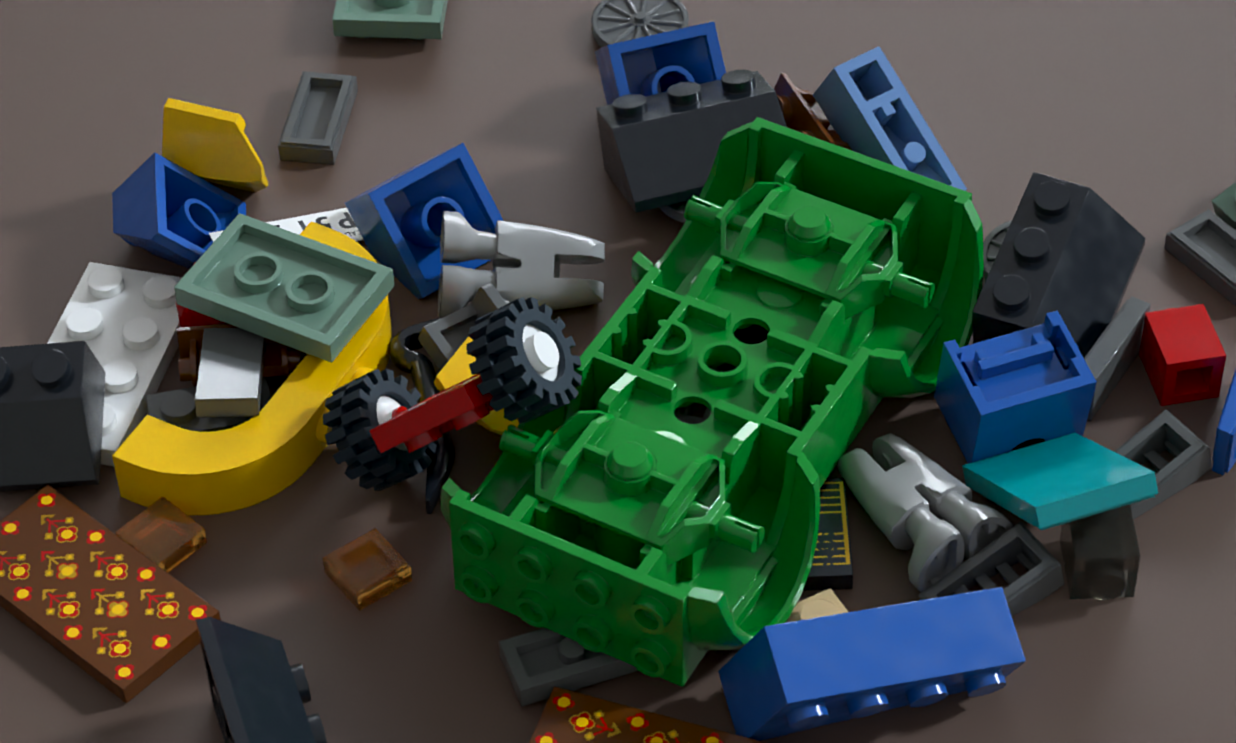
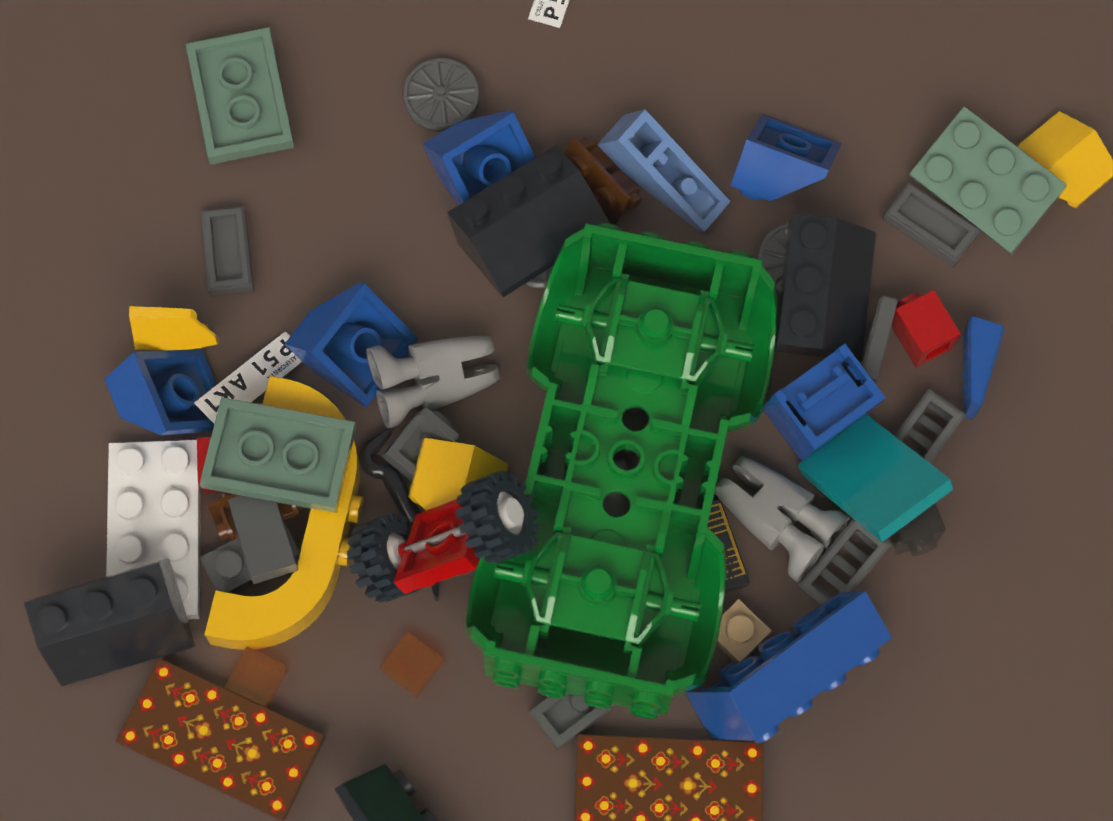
camera: 20 degrees left, 25 degrees up
(1025, 143) = (782, 160): none -> blue slope

